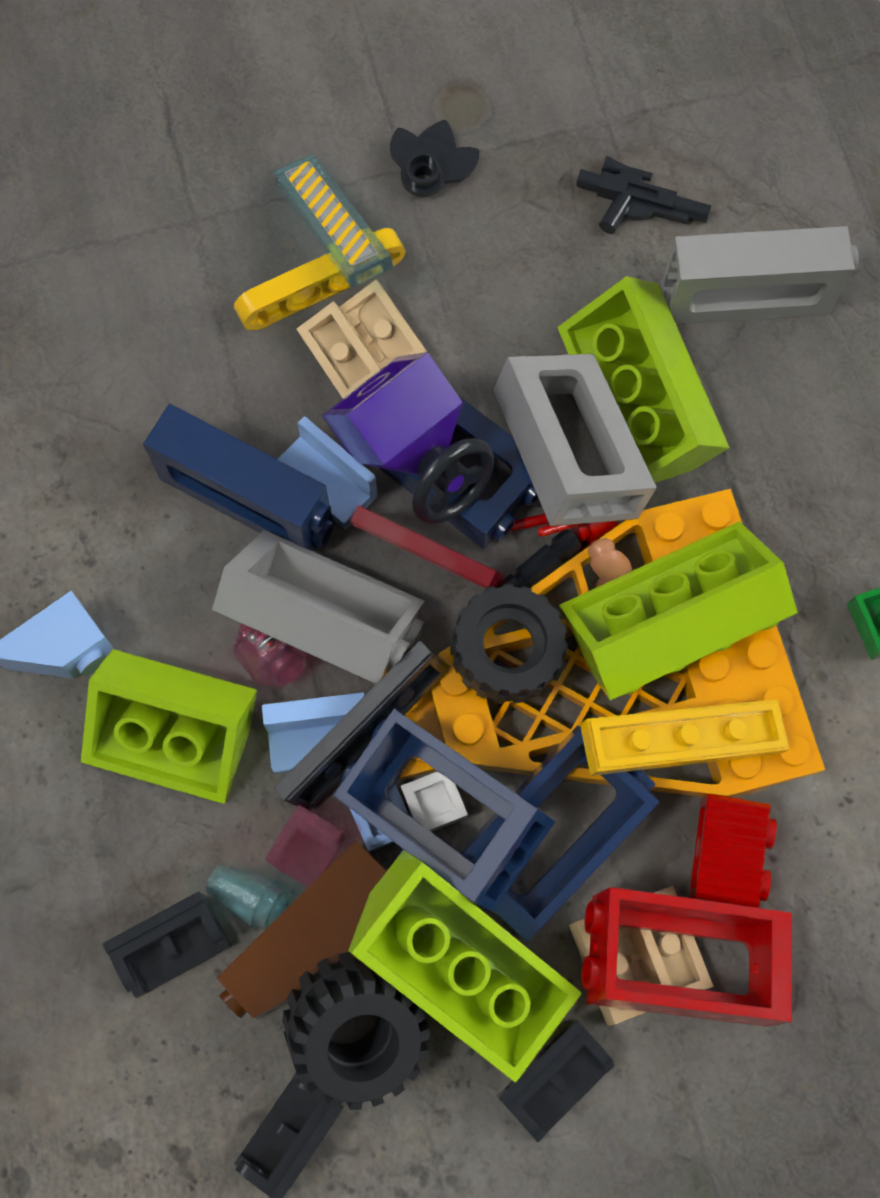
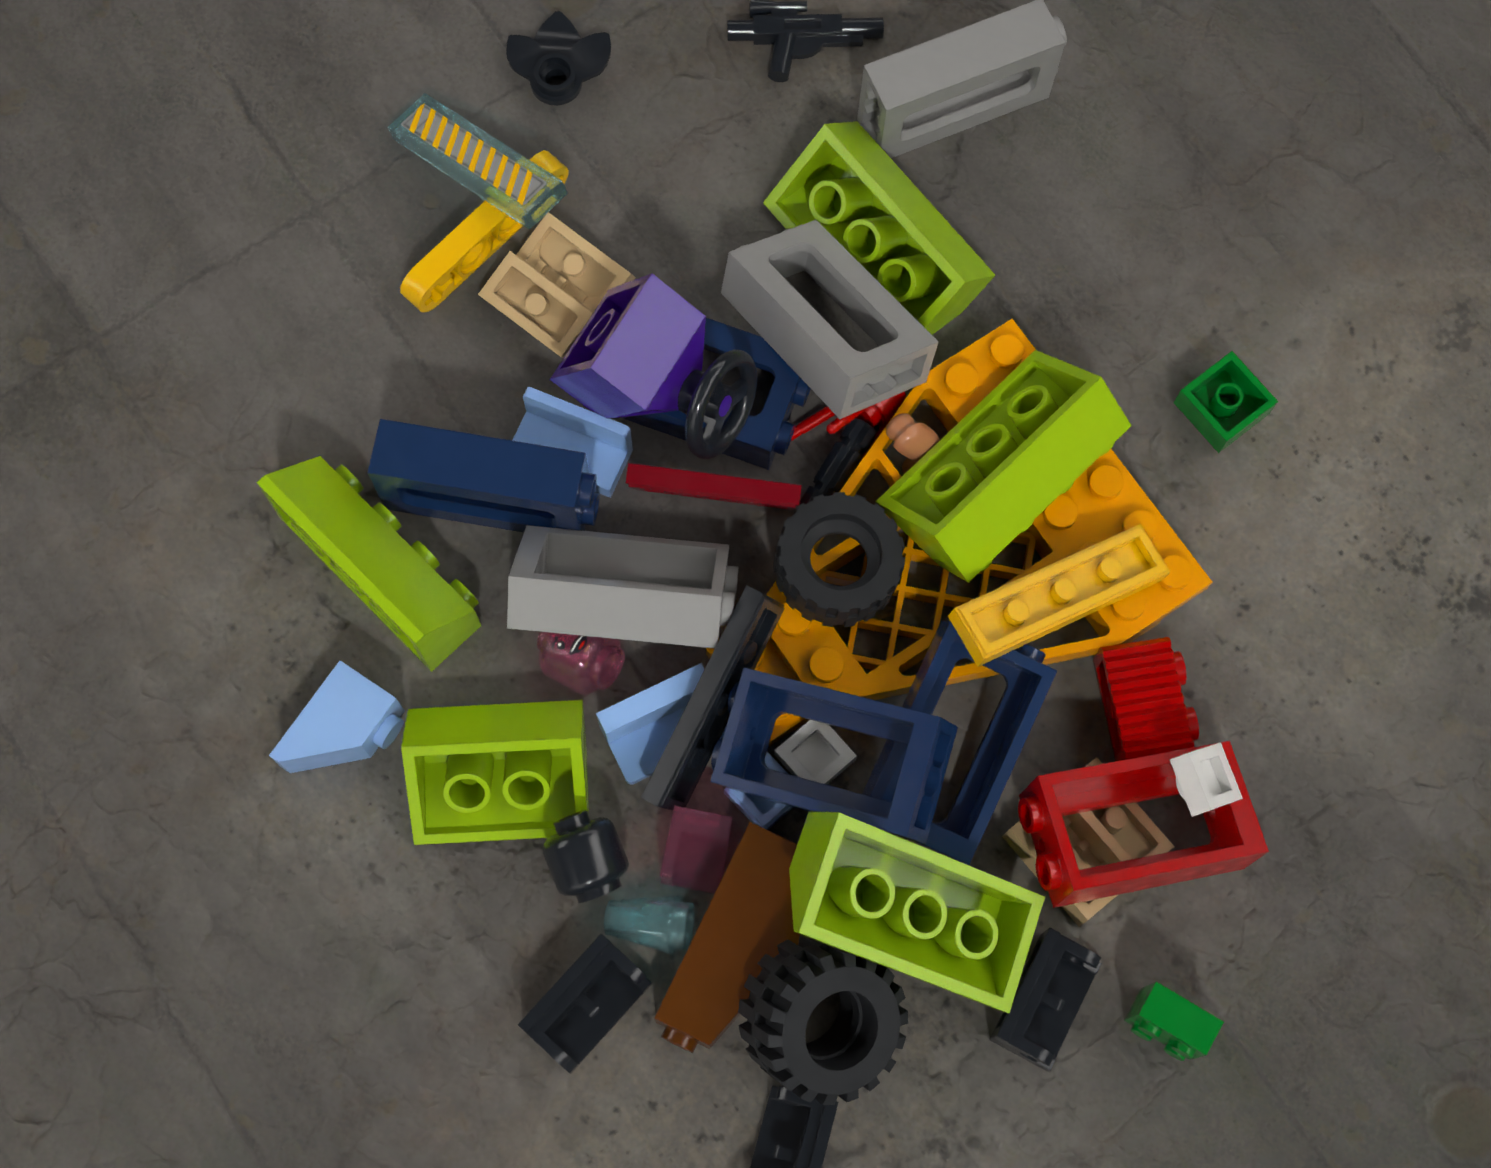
camera: 20 degrees left, 0 degrees up
(129, 516) = (372, 558): none -> lime slope
(211, 821) = (585, 856): none -> black head
(664, 1147) = (1173, 1022): none -> green piece
(756, 940) = (1205, 779): none -> white plate

